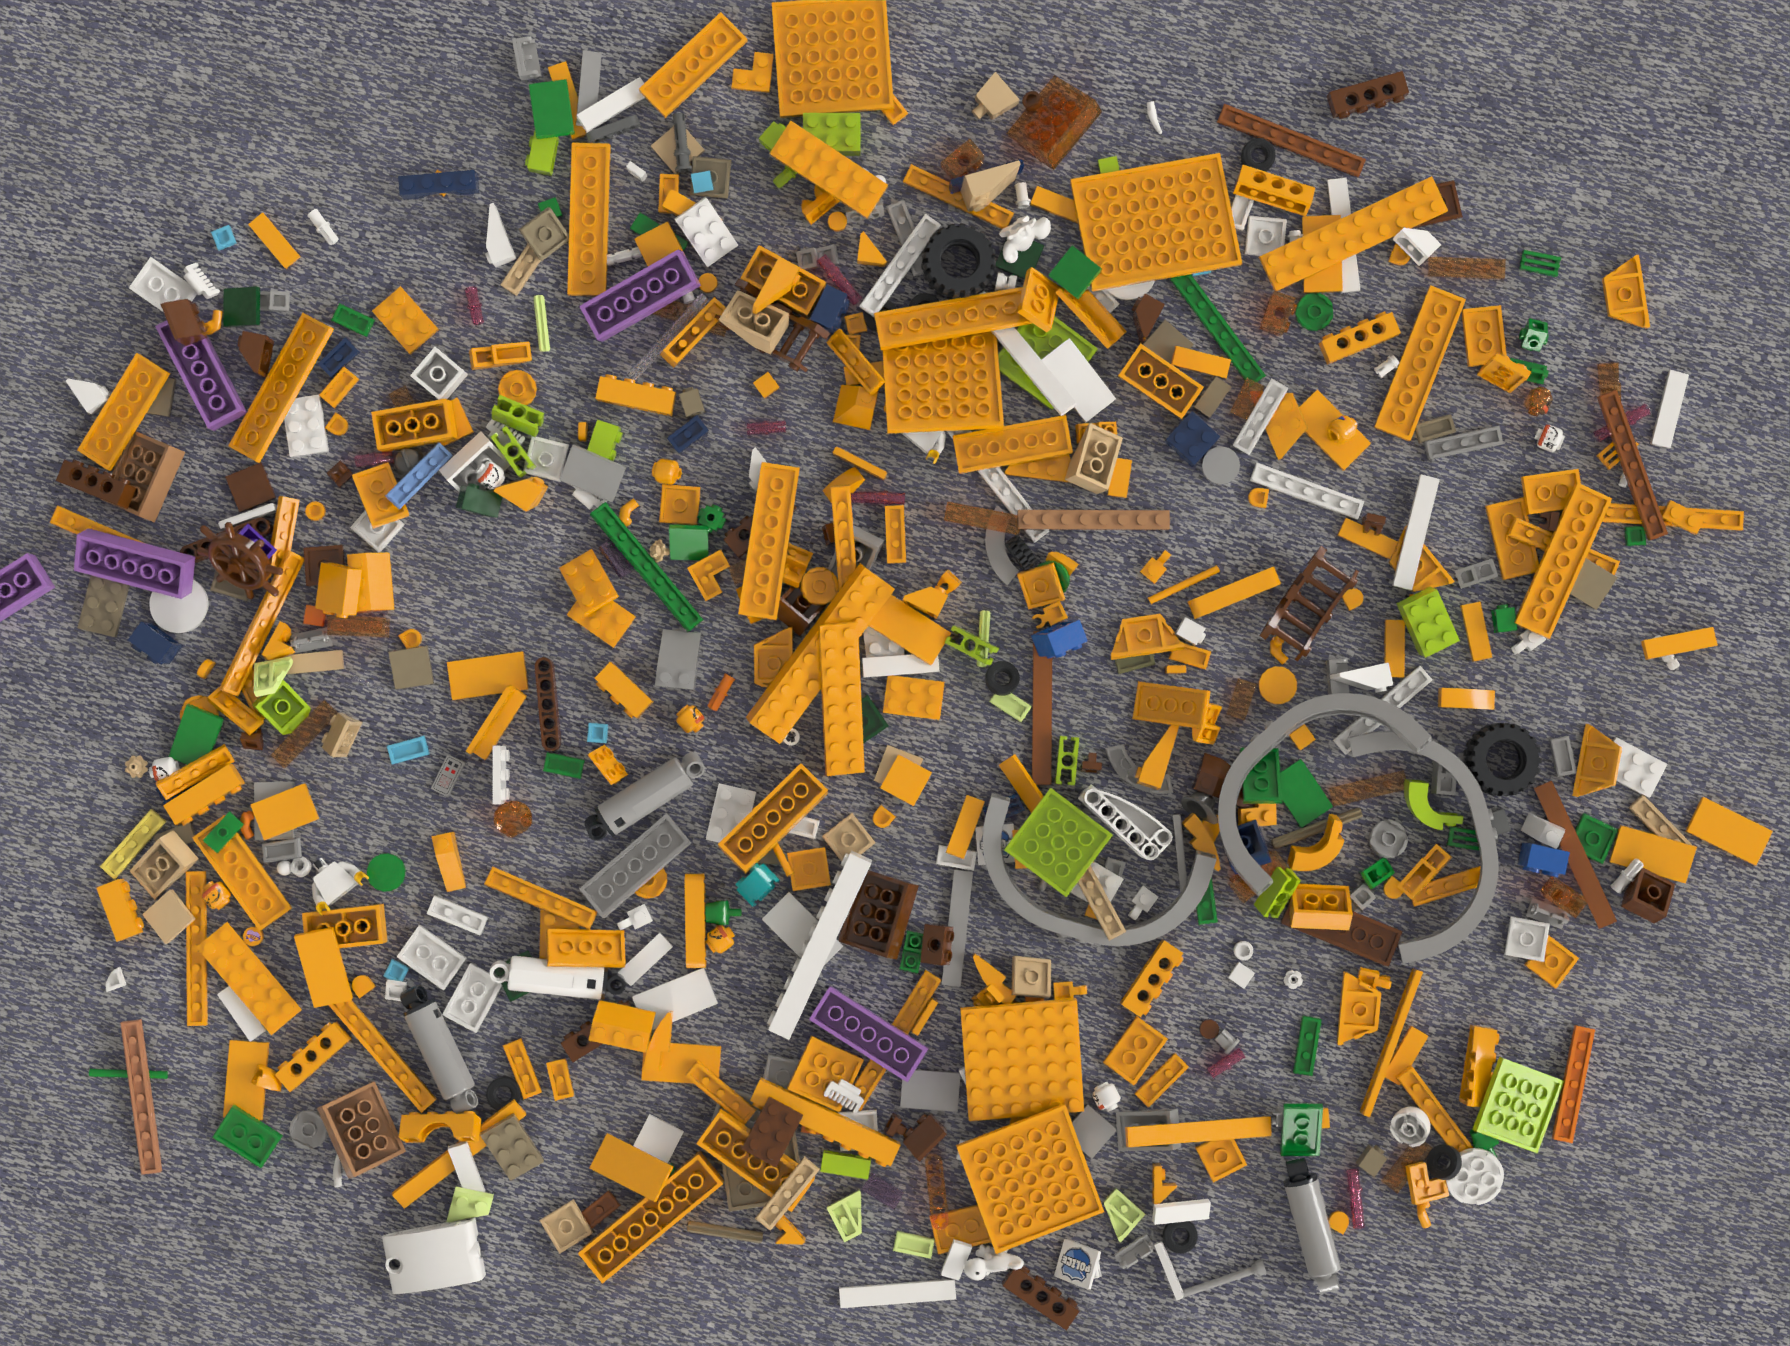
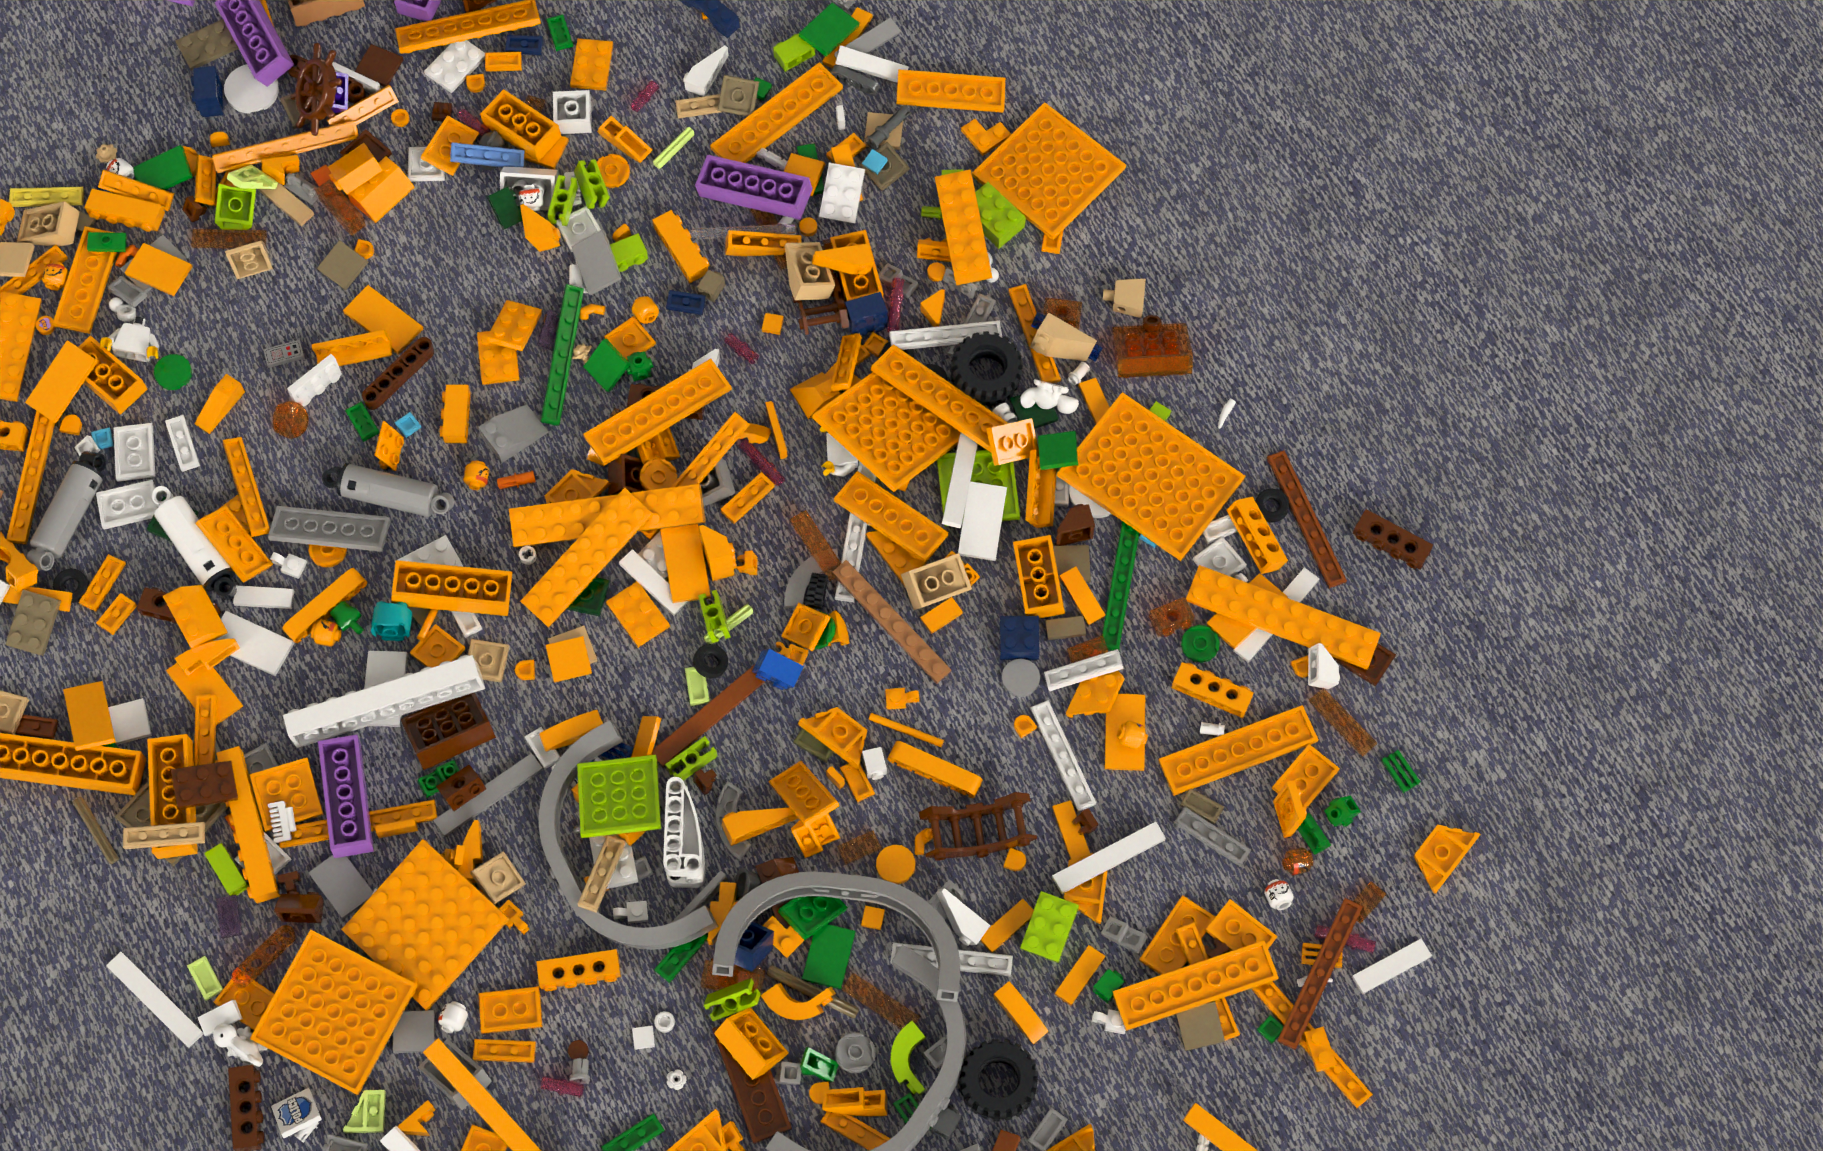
camera: 50 degrees right, 20 degrees down
(408, 750) = (279, 313): medium azure tile -> none
(704, 572) = (595, 394): light orange plate -> none
(791, 1233) = (136, 876): light orange slope -> none
(847, 1215) = (186, 907): yellowish green wing -> none

